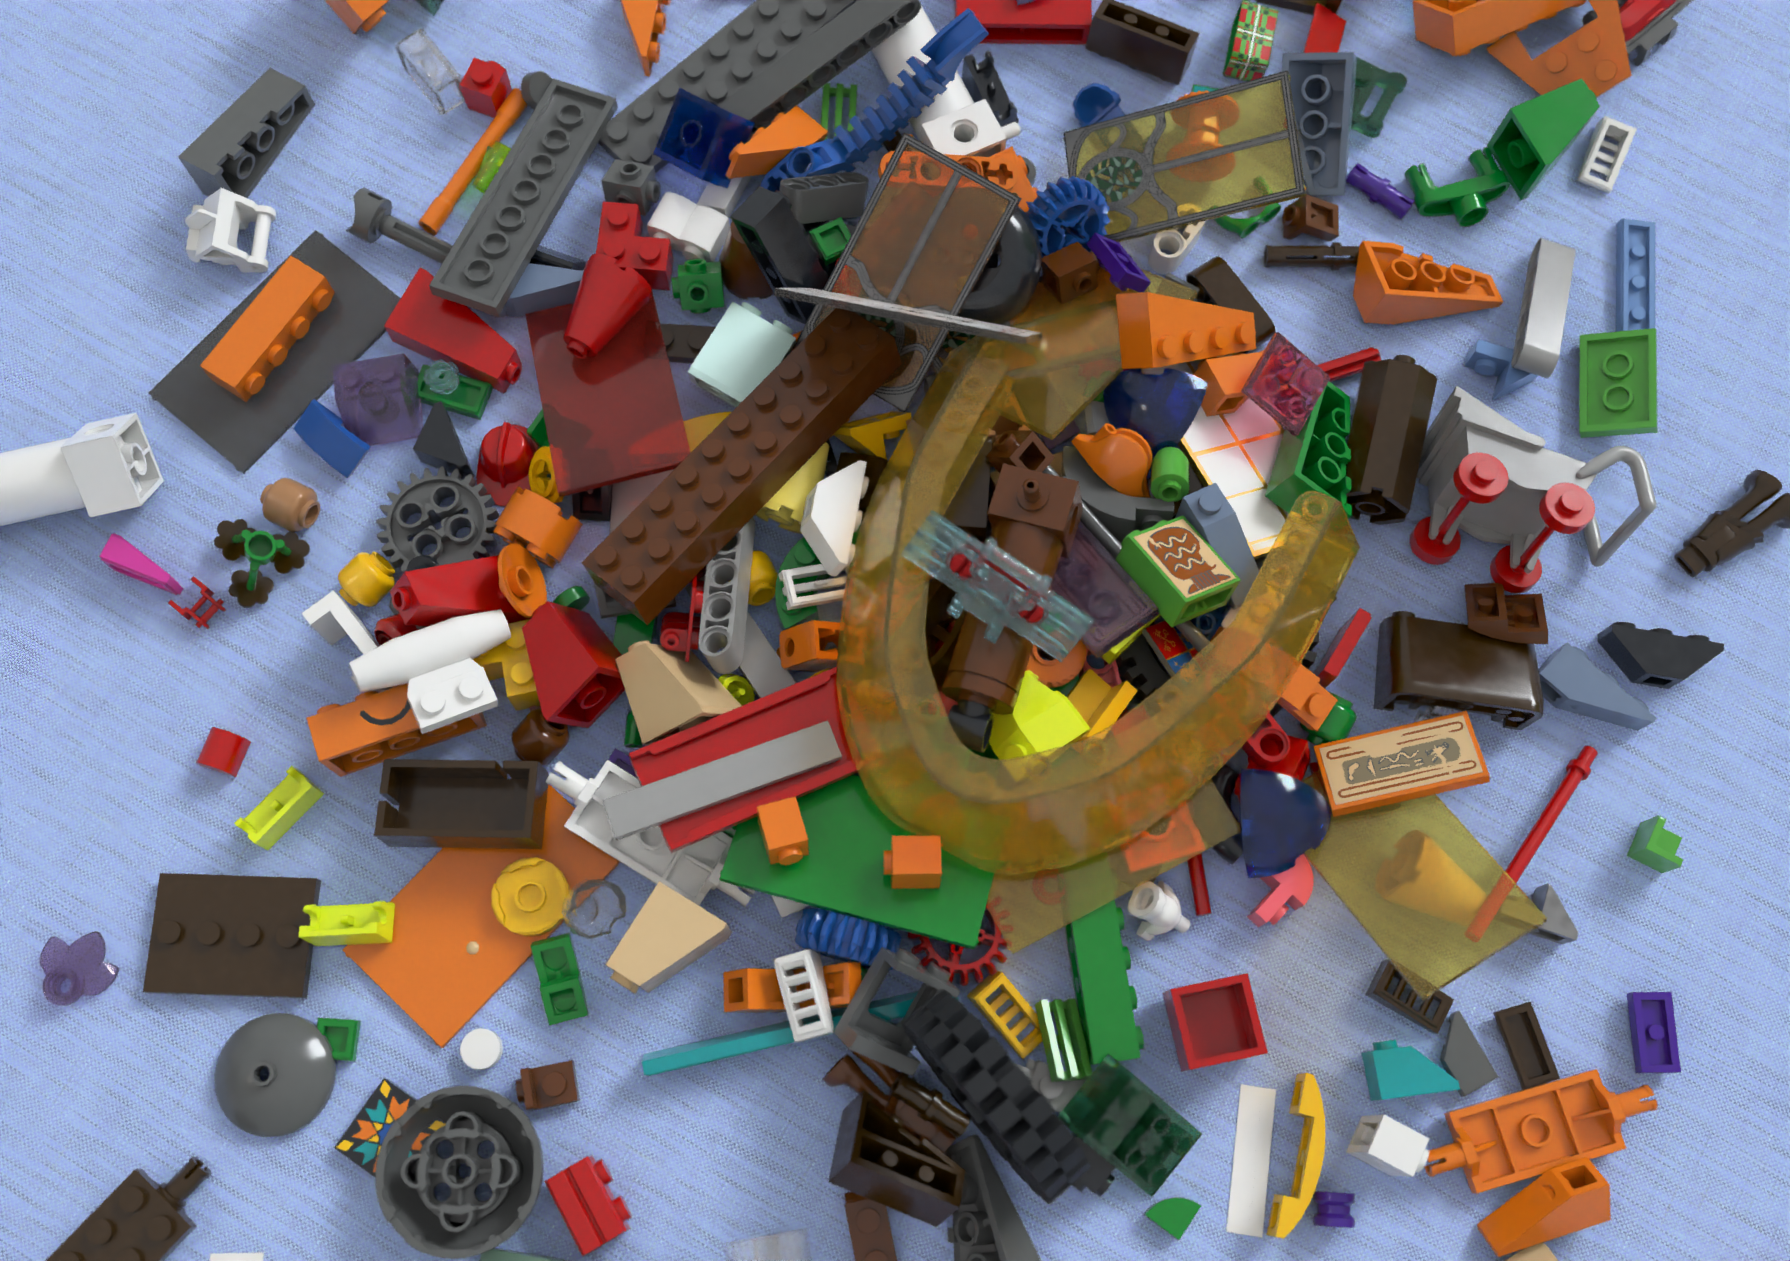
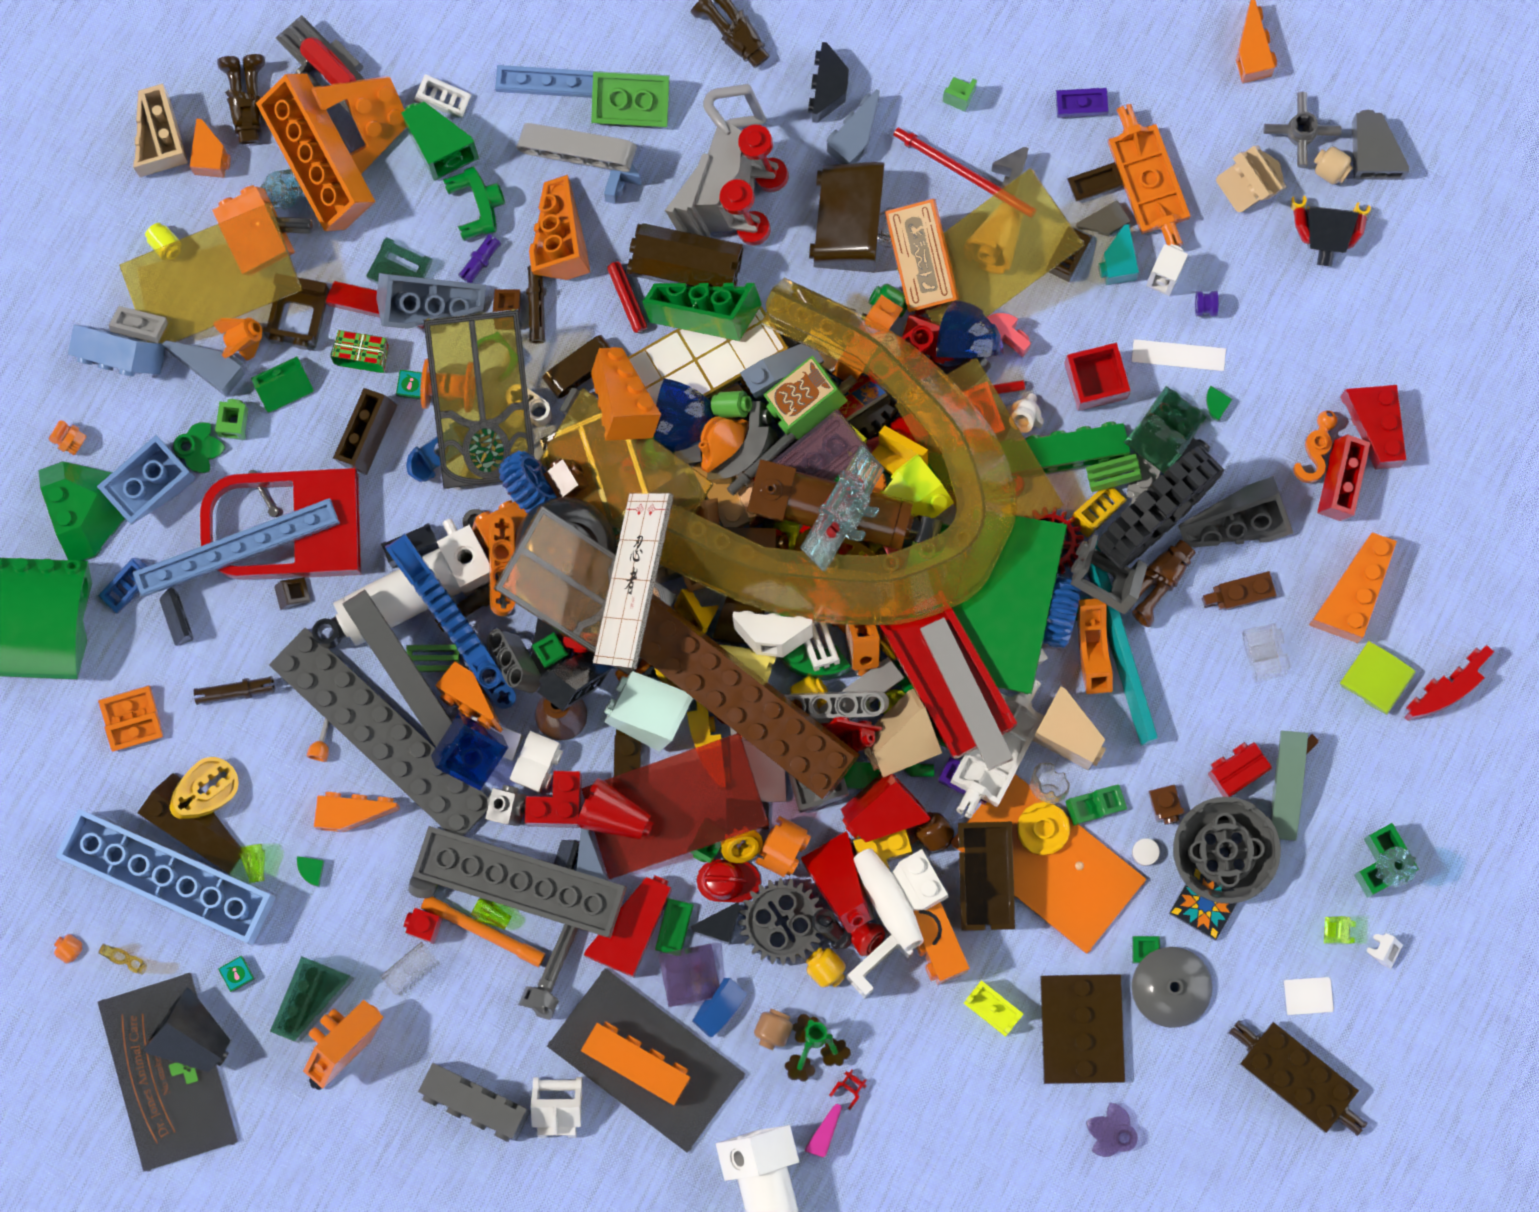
camera: 85 degrees left, 5 degrees up
(223, 751) = (956, 1054): red brick -> none
(349, 924) = (1069, 947): neon yellow hinge -> none
(448, 383) = (662, 925): clear light blue plate -> none
(521, 579) = (831, 847): orange dish -> none
(573, 597) = (834, 821): green tile -> none
(699, 286) = (585, 748): green brick -> none
(783, 831) = (999, 652): orange brick -> none
(788, 981) = (1089, 629): white slope -> none
(893, 1166) = (1202, 577): dark brown wedge -> none
(914, 862) = (1014, 565): orange brick -> none
(930, 1105) = (1163, 553): dark brown pin -> none
(1020, 449) = (726, 505): reddish brown brick -> none
(1122, 268) = (559, 444): dark purple plate -> none
(1225, 381) = (646, 358): orange slope -> none
(1285, 384) = (658, 325): clear pink slope -> none
(1288, 1210) = (1208, 330): yellow slope -> none
(1342, 647) = (842, 293): red tile -> none
(1506, 617) = (808, 183): reddish brown slope -> none
(1549, 1207) = (1195, 171): orange slope -> none

